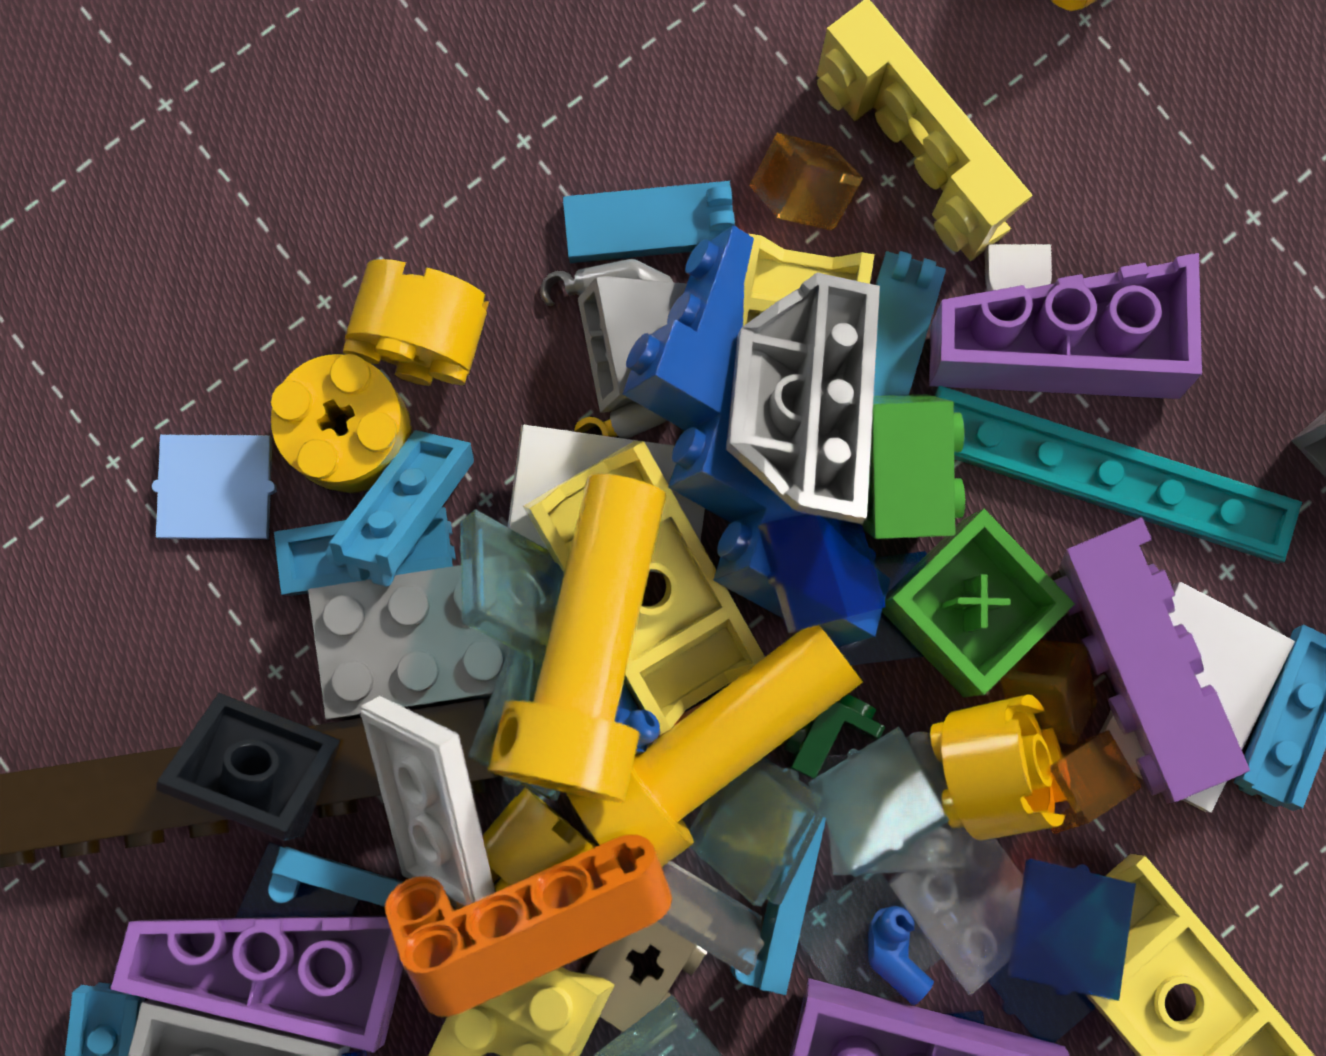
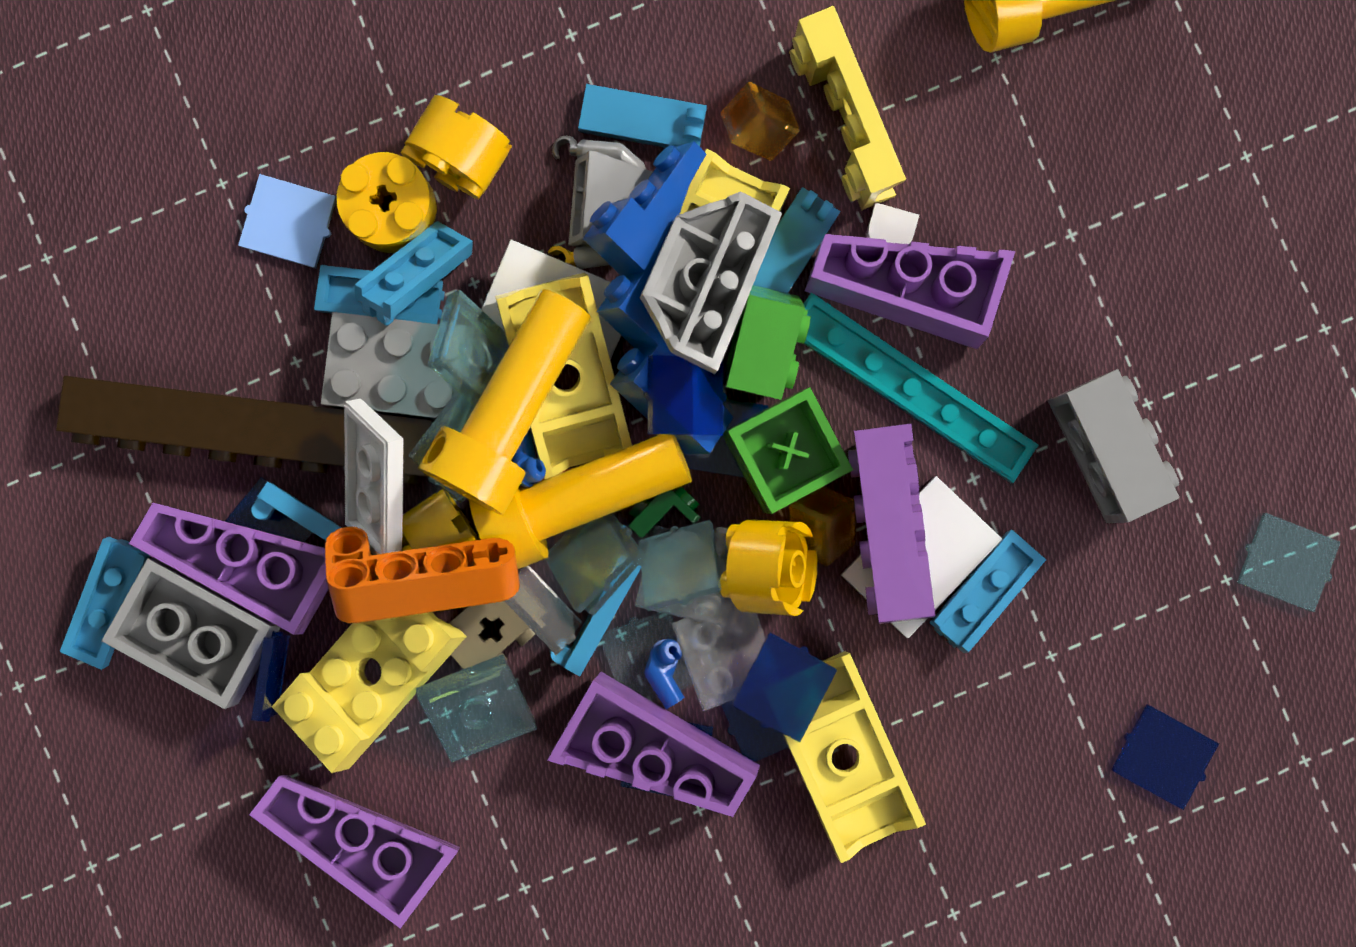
camera: 15 degrees right, 5 degrees up
(251, 768) = (262, 422): black slope -> none
(1092, 779) = (830, 592): clear orange panel -> none

